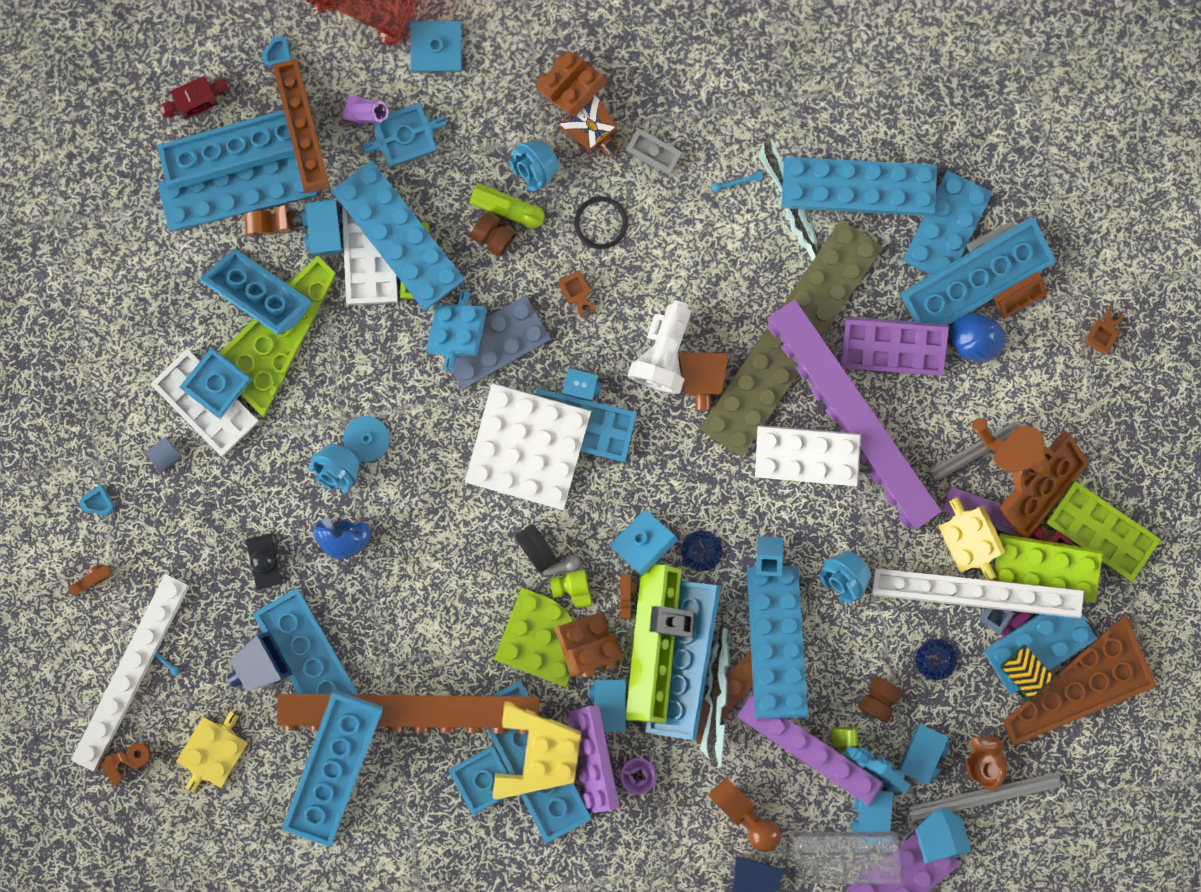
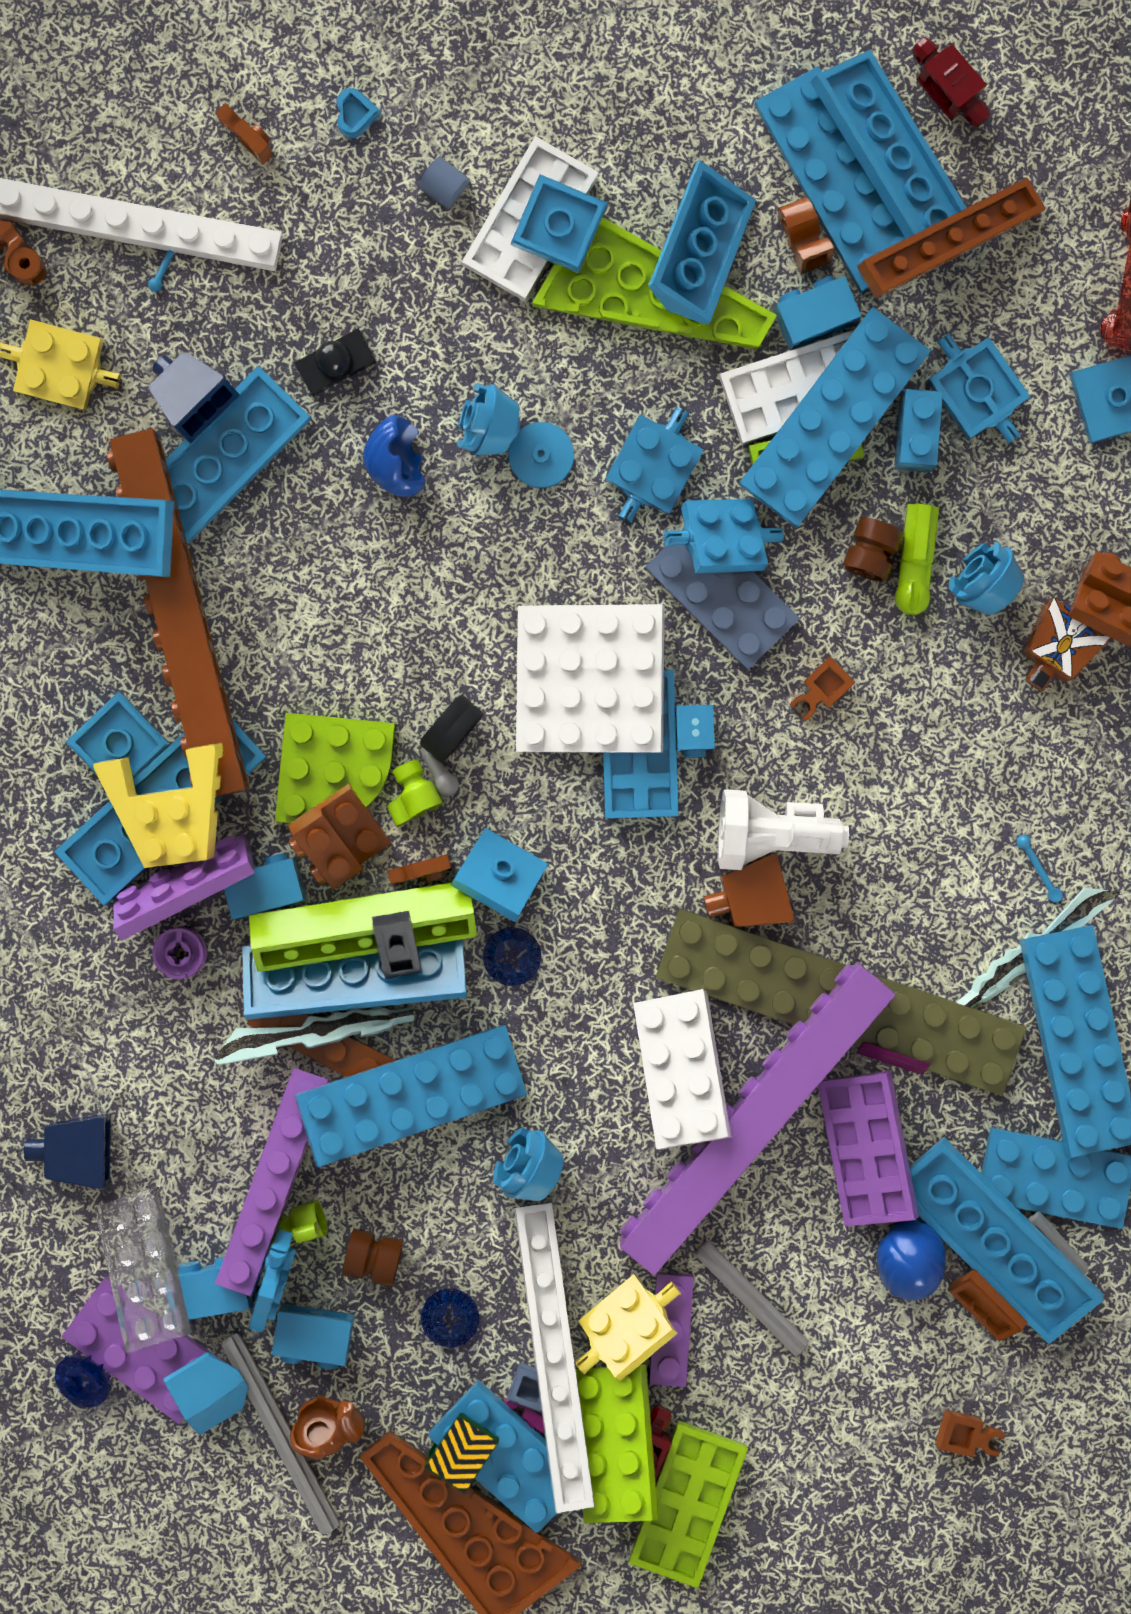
camera: 75 degrees right, 5 degrees up
(276, 52) = (1047, 179): dark azure tile -> none
(364, 111) = (997, 321): medium lavender piece -> none
(394, 365) = (653, 464): none -> dark azure plate
(422, 182) = (918, 430): none -> dark azure brick
(616, 240) = (937, 728): black tyre -> none
(653, 151) = (1050, 741): light grey plate -> none
(763, 833) = (176, 1093): dark orange beam -> none
(769, 556) = (527, 1053): dark azure brick -> none
(836, 311) = (874, 1052): none -> magenta sticker
(1038, 472) = (748, 1396): dark orange plate -> none

